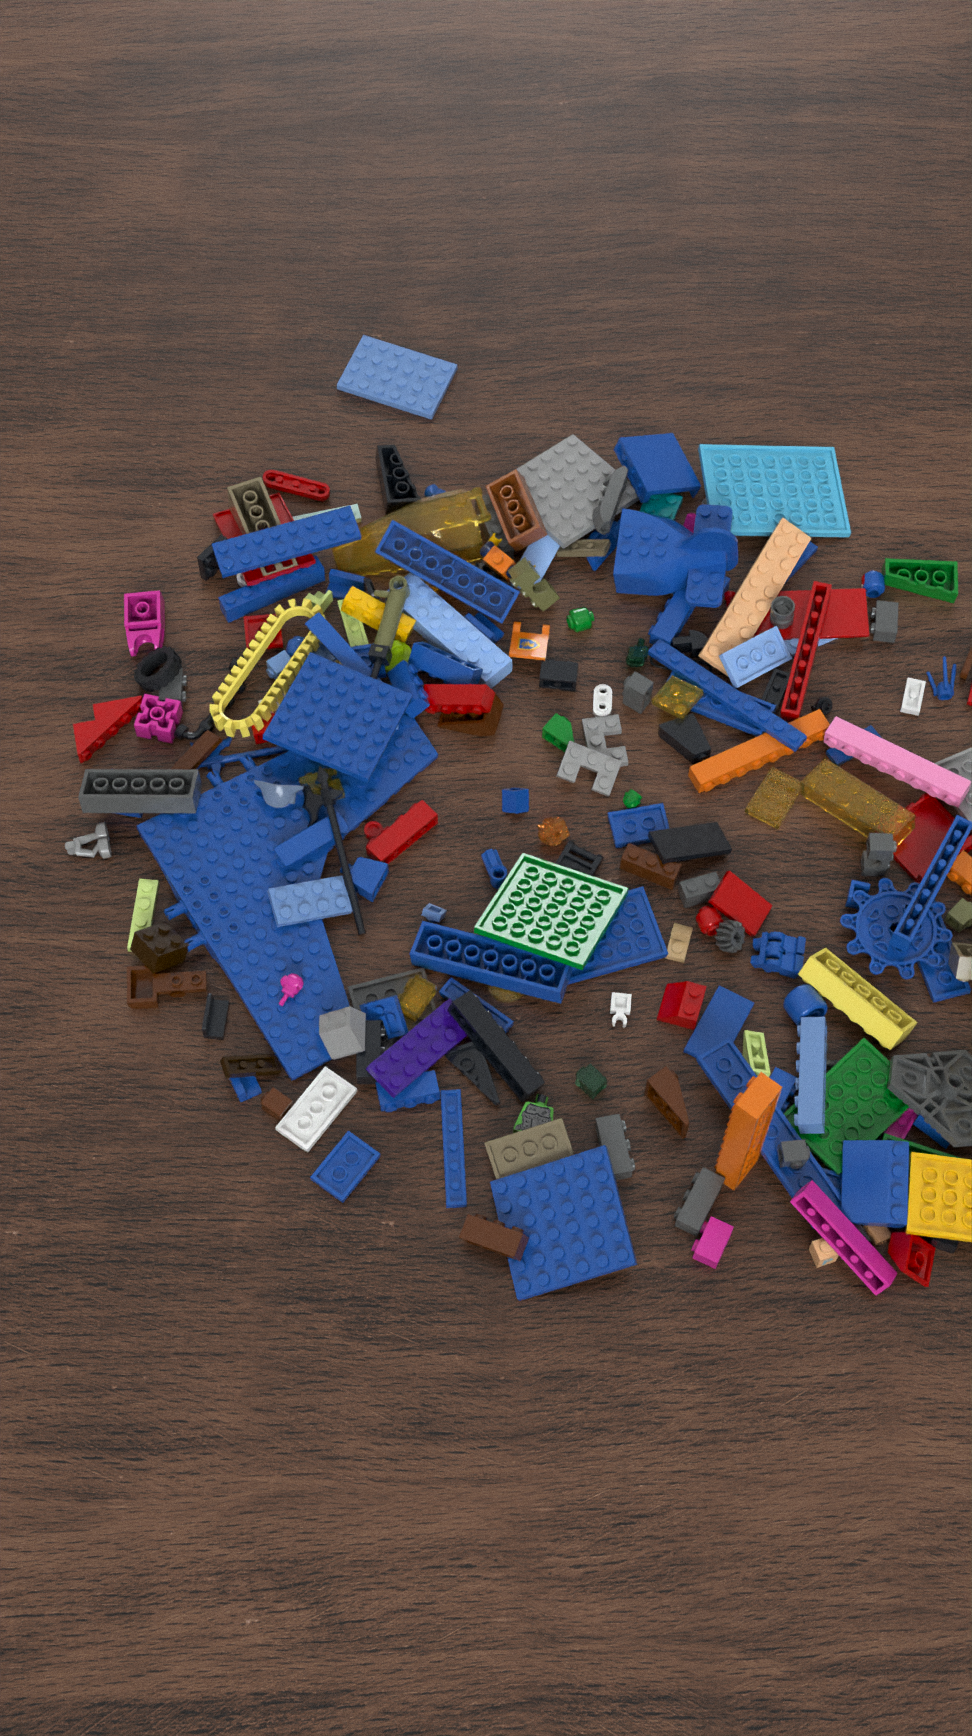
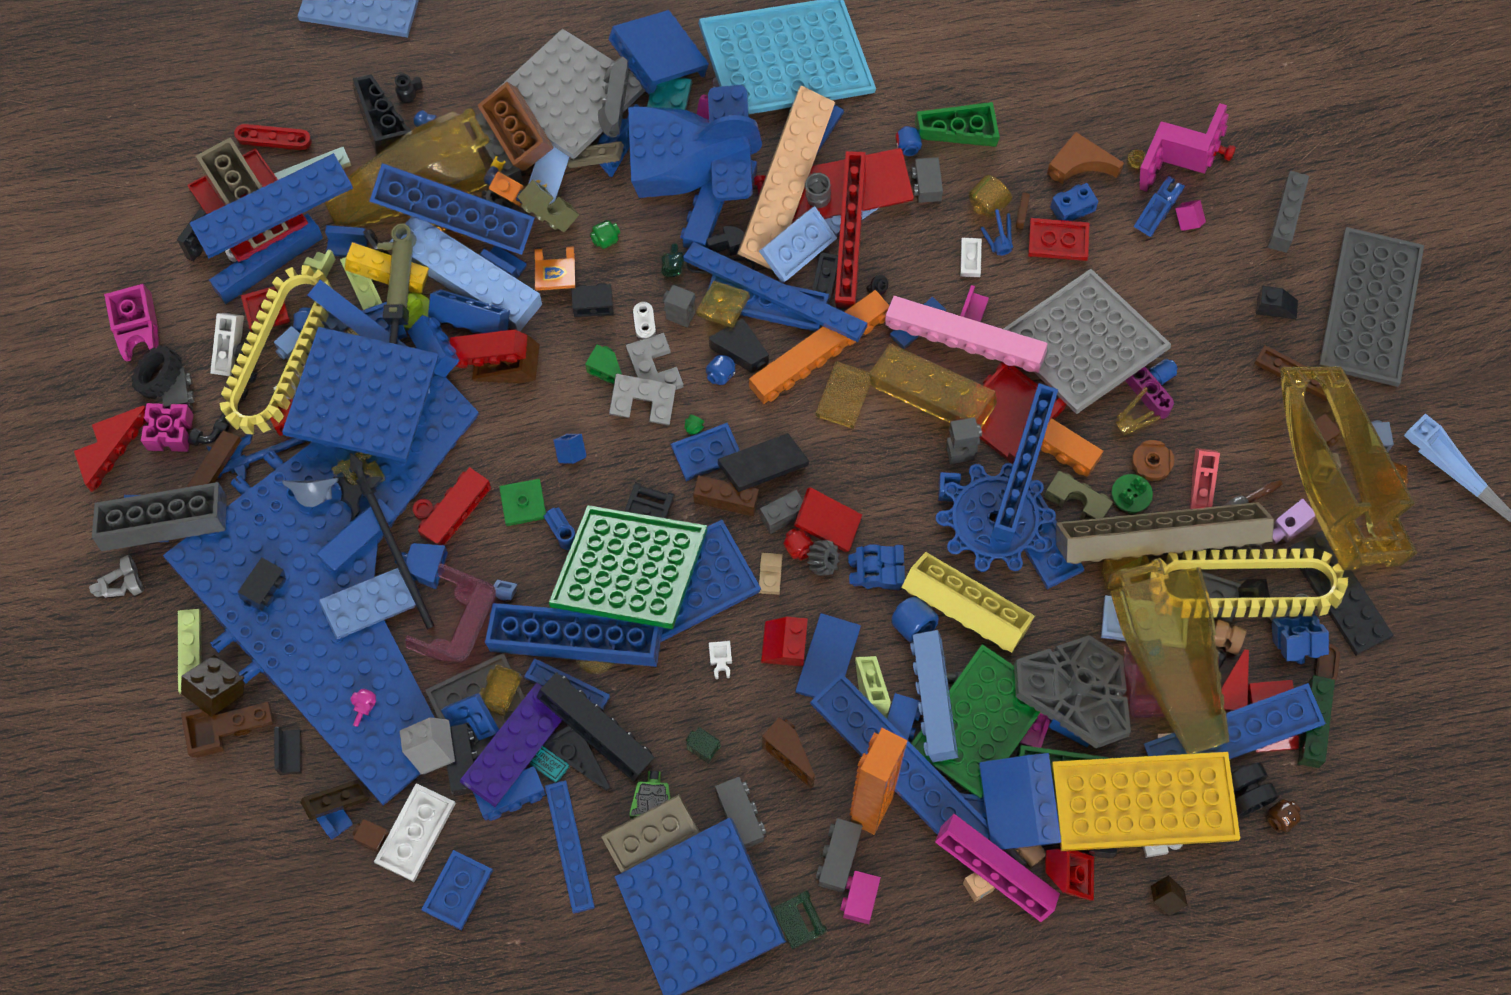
camera: 10 degrees left, 5 degrees up
(220, 866) = (262, 584): none -> black brick
(223, 653) = (226, 339): none -> white slope
(409, 915) = (478, 598): none -> clear pink windscreen
(423, 462) = (407, 88): none -> black piece
(448, 1073) = (549, 764): none -> teal tile
(464, 840) = (522, 502): none -> green plate
(494, 1236) = (629, 938): reddish brown brick -> none
(553, 831) = (615, 475): clear orange brick -> none
(646, 1254) = (793, 924): none -> clear green plate
(664, 755) = (720, 370): none -> blue head
(793, 1153) = (929, 787): dark grey brick -> none
(909, 738) = (974, 305): none -> dark pink panel
(939, 643) = (988, 196): none -> clear yellow head

